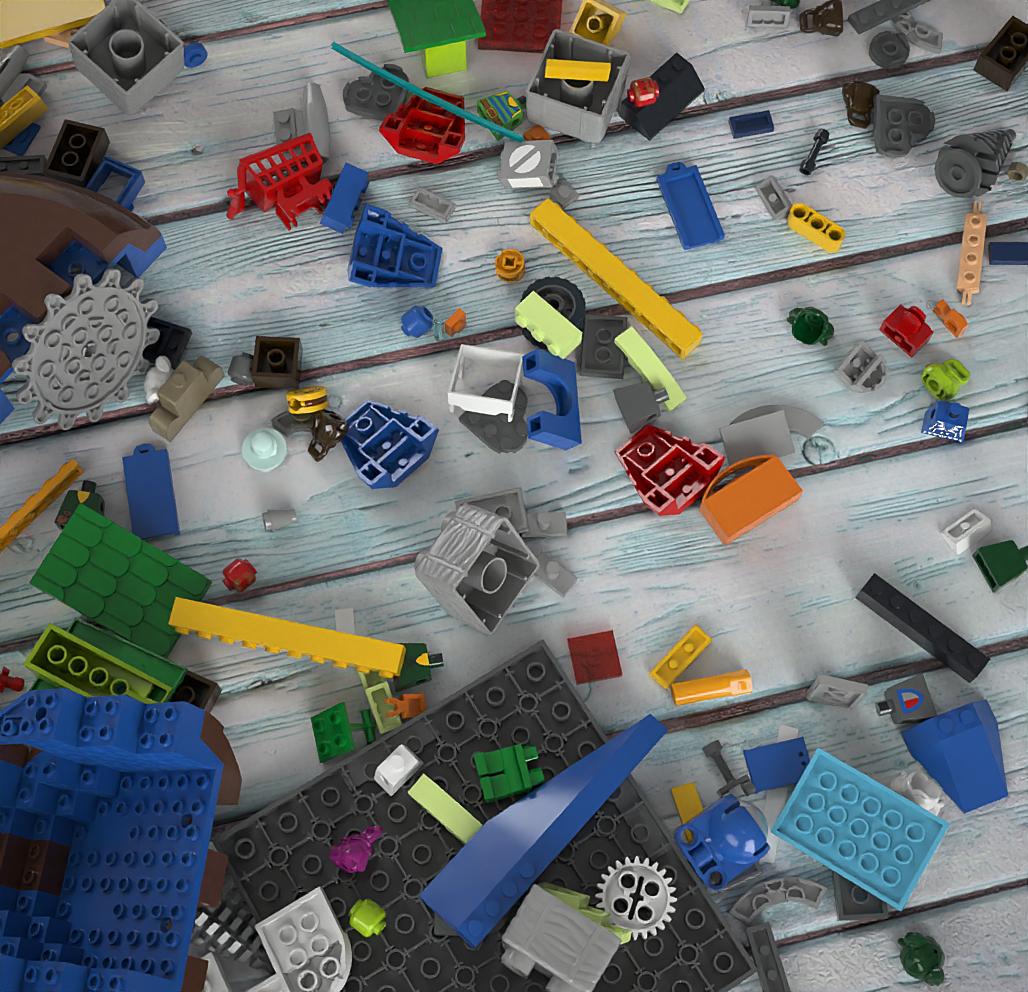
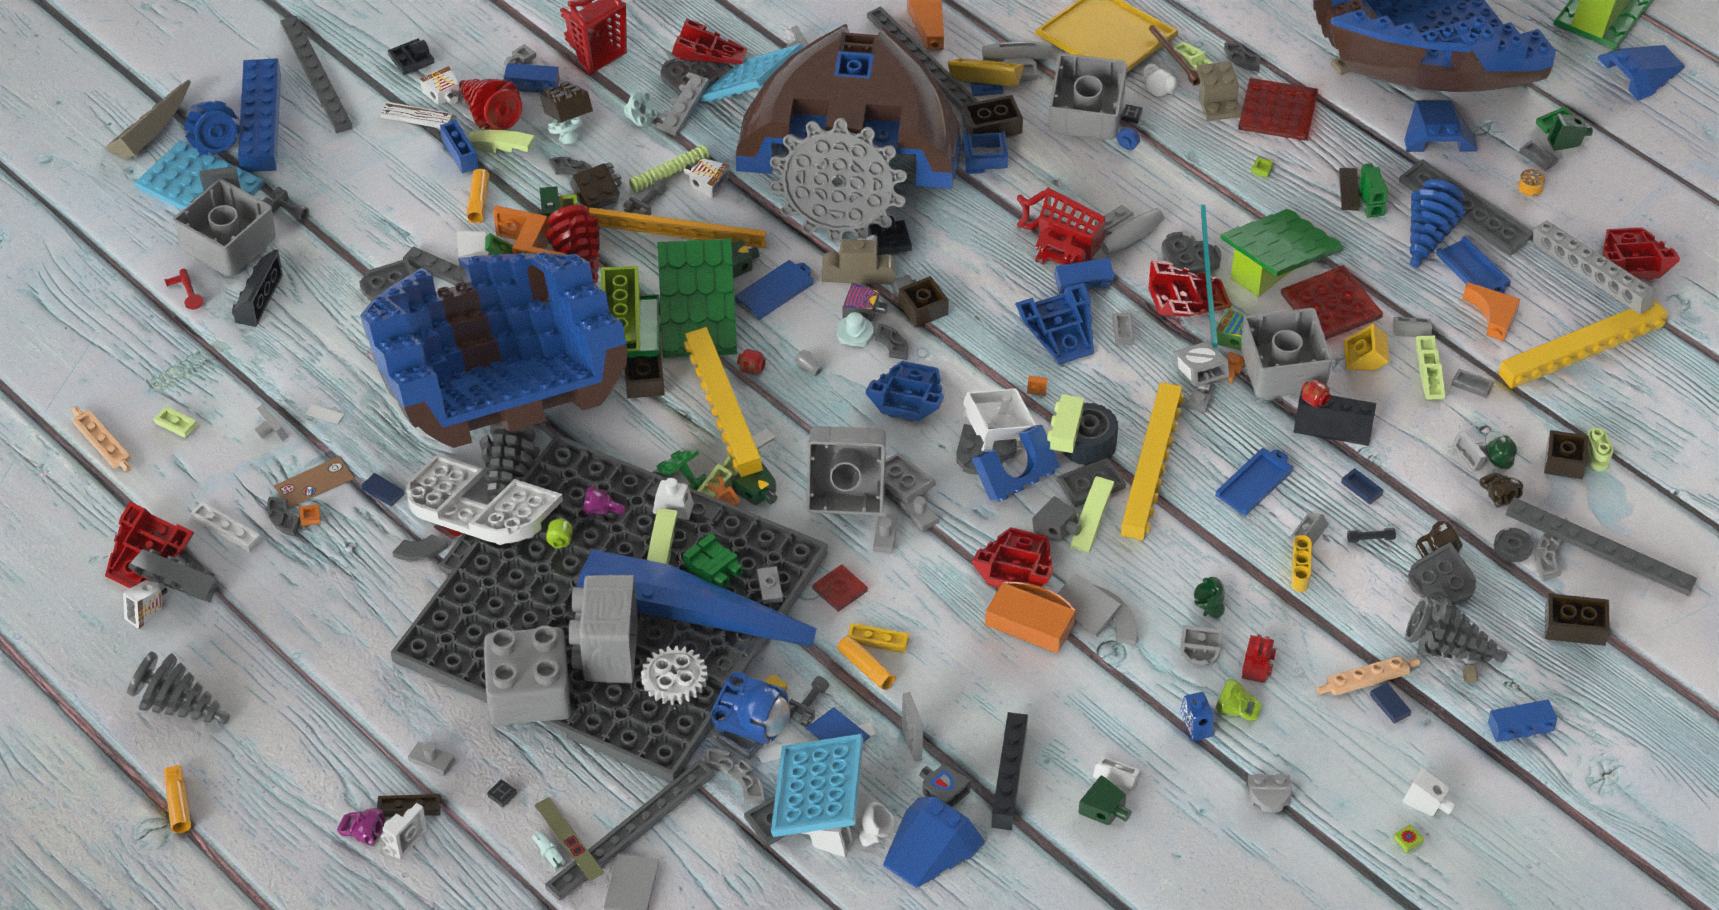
camera: 60 degrees right, 20 degrees down
(235, 420) = (863, 301): none -> dark grey torso
(307, 399) = (907, 330): yellow head -> none
(326, 431) = (893, 353): dark brown piece -> none
(416, 321) = (1019, 362): blue head -> none
(439, 330) = (1022, 379): clear light blue tile -> none
(510, 265) = (1111, 396): light orange wheel -> none
(567, 729) = (769, 585): none -> light grey plate
(577, 70) = (1286, 334): yellow tile -> none
(580, 903) = (641, 643): yellowish green slope -> none
(922, 958) = (747, 880): dark green hair -> none
(952, 319) = (1292, 686): orange plate -> none

